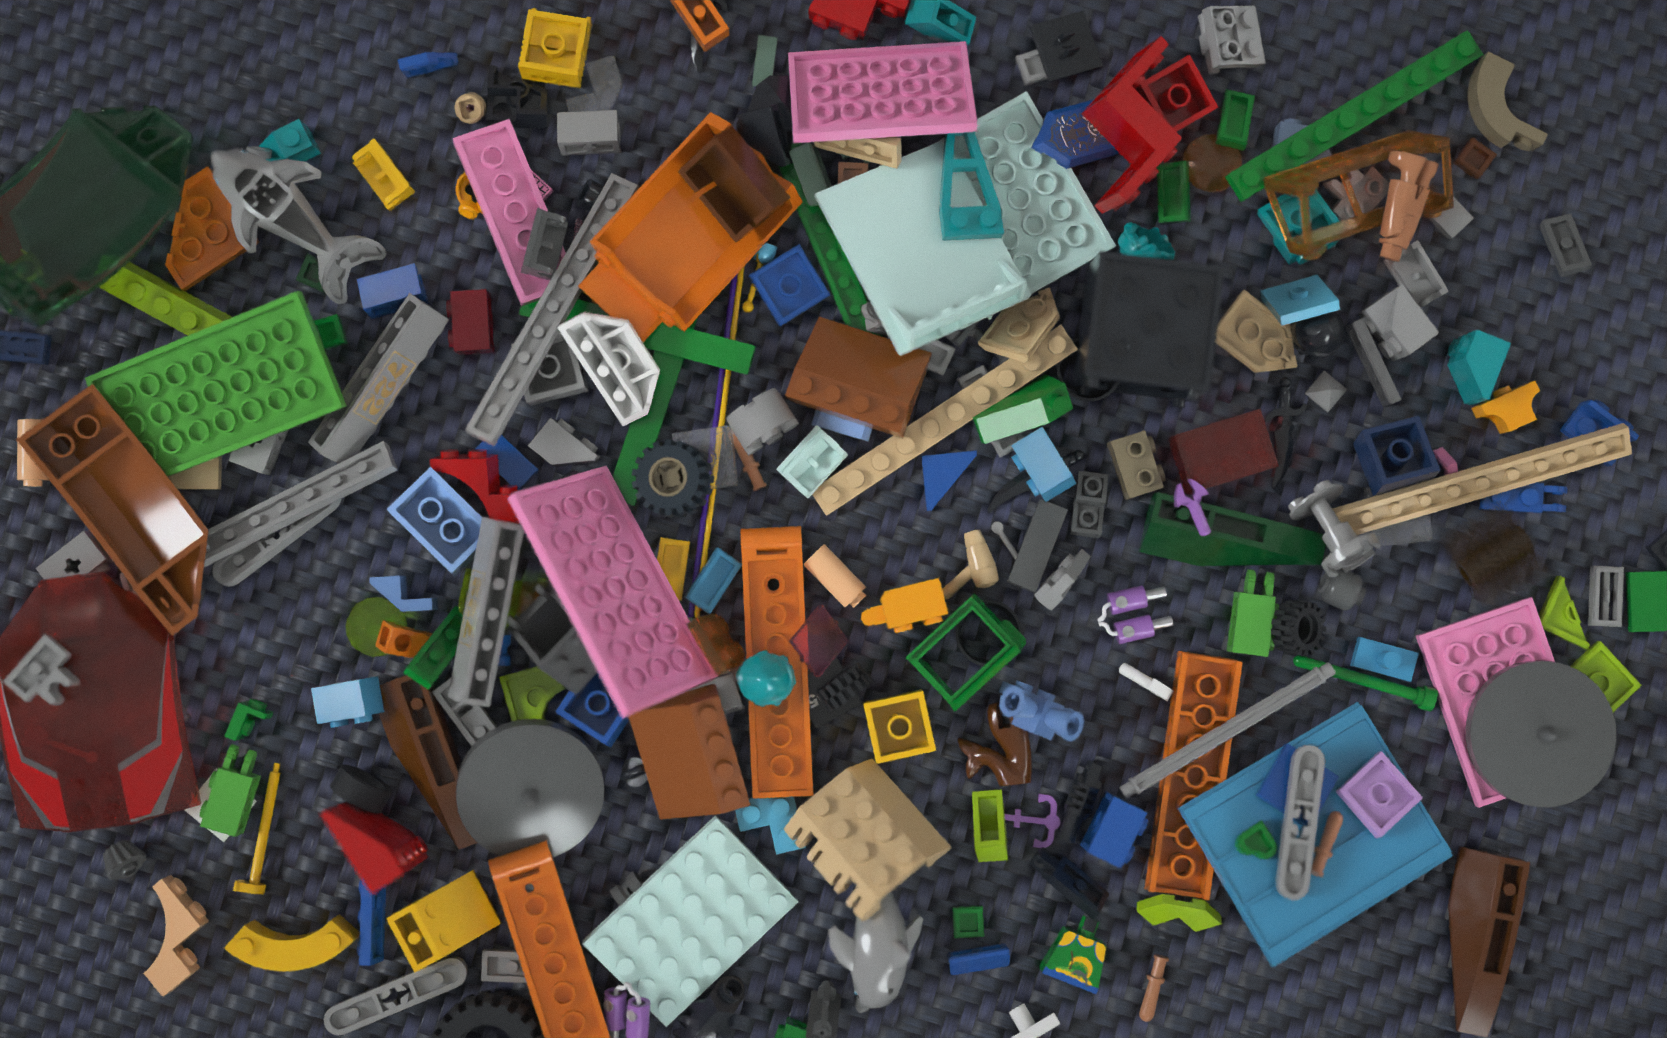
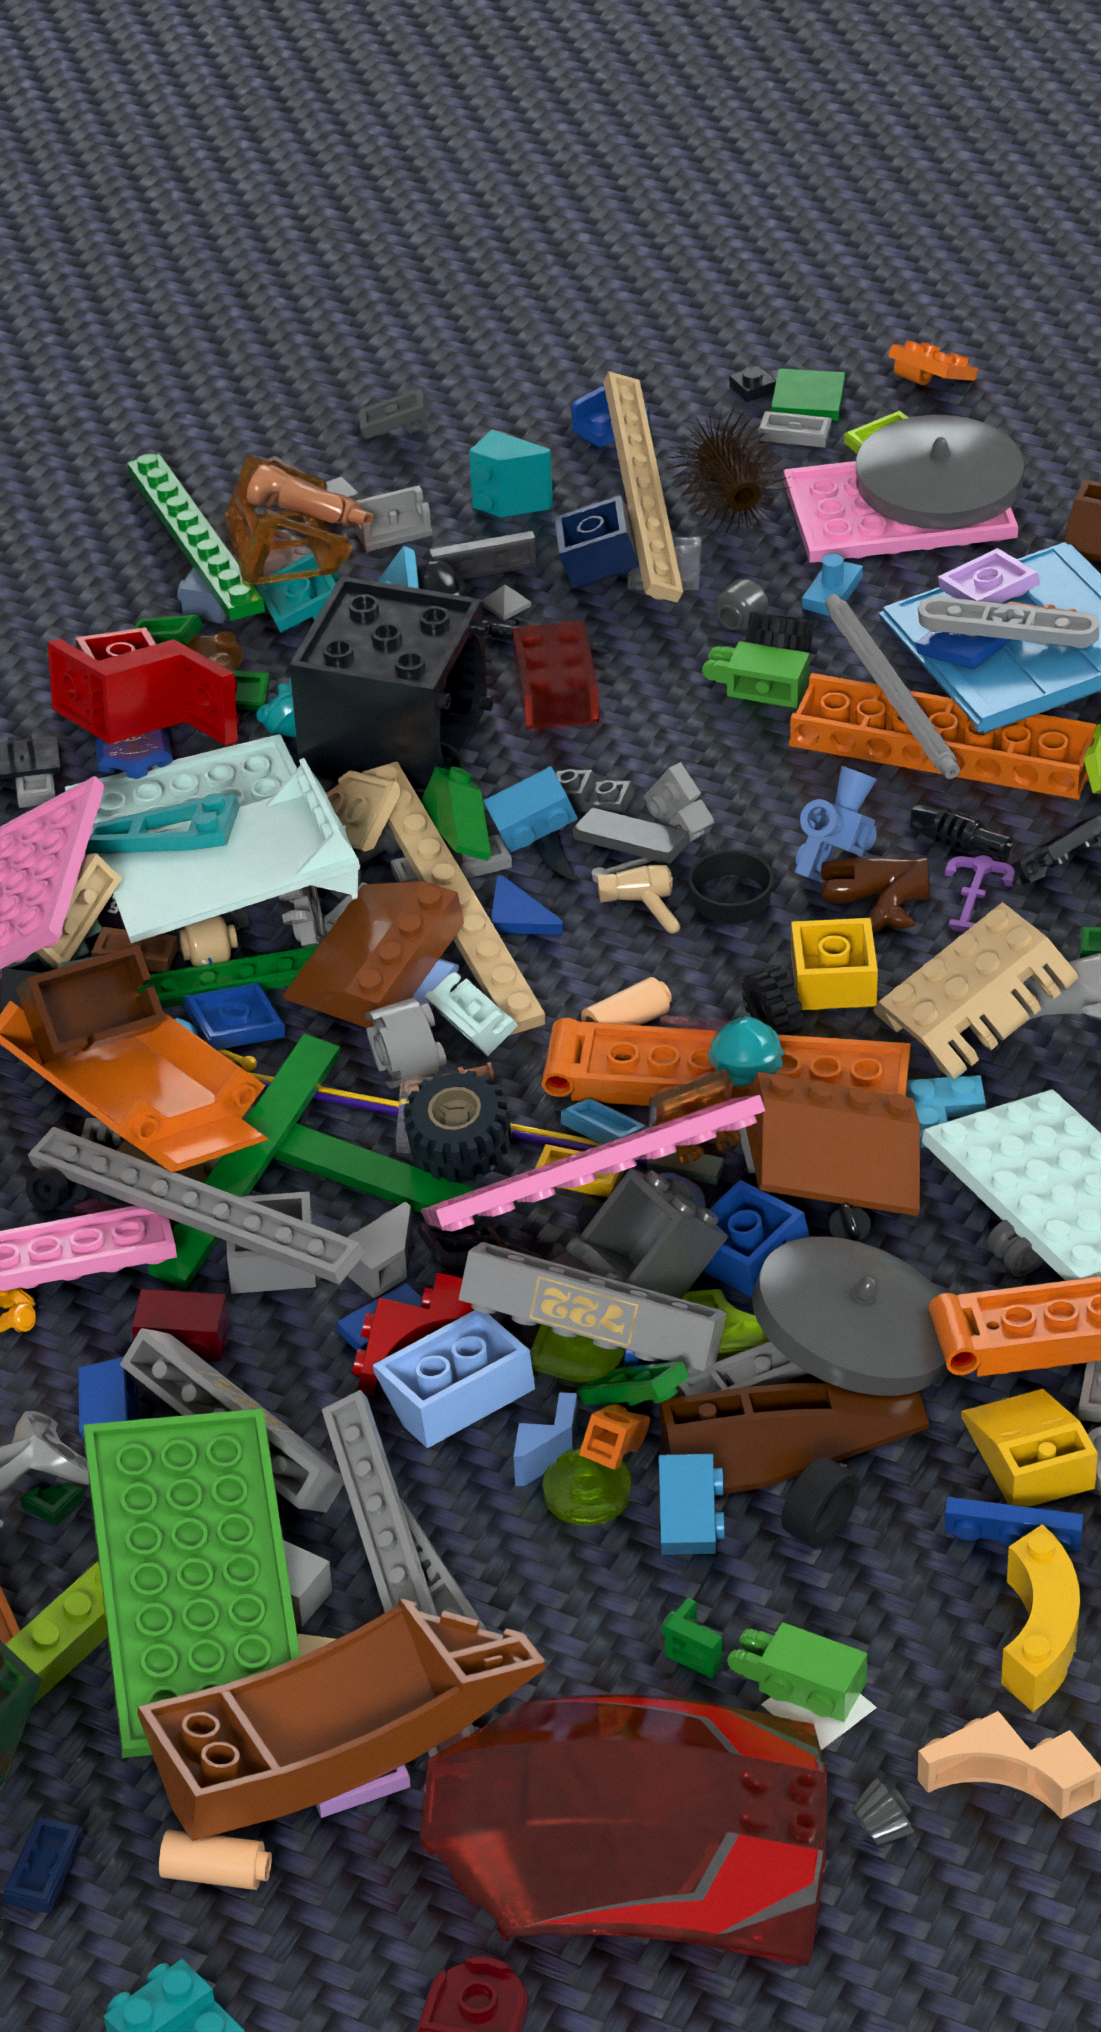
camera: 75 degrees left, 45 degrees down
(42, 672) = (568, 1802): light grey plate -> none
(81, 548) = (393, 1815): light grey brick -> none
(253, 885) = (947, 1663): yellow piece -> none
(374, 844) = (900, 1452): red slope -> none
(544, 244) = (100, 1215): dark grey hinge -> none
(614, 362) = (288, 1157): white wedge -> none
(908, 605) = (680, 931): light orange hinge -> none
(989, 826) = (974, 896): lime slope -> none
(1004, 630) = (761, 943): green piece -> none
(1114, 830) = (998, 788): blue brick -> none
(1130, 600) = (718, 773): medium lavender piece -> none
(1136, 464) = (552, 742): dark tan brick -> none
(1145, 681) = (830, 756): white bar -> none
(1193, 505) = (599, 681): medium lavender bar -> none
(1230, 38) = (63, 623): light grey plate -> none
(1233, 539) = (651, 689): dark green wedge -> none
(1256, 842) = (1027, 662): green tile -> none
(1345, 546) = (680, 577): light grey piece -> none
(1398, 323) = (442, 517): light grey slope -> none
(1423, 697) = (881, 560): green piece -> none
(1490, 109) = (221, 452): dark tan arch -> none
(1509, 407) = (569, 468): light orange brick -> none
(1525, 499) = (670, 493): blue hinge -> none
(1560, 615) = (812, 456): lime tile -> none

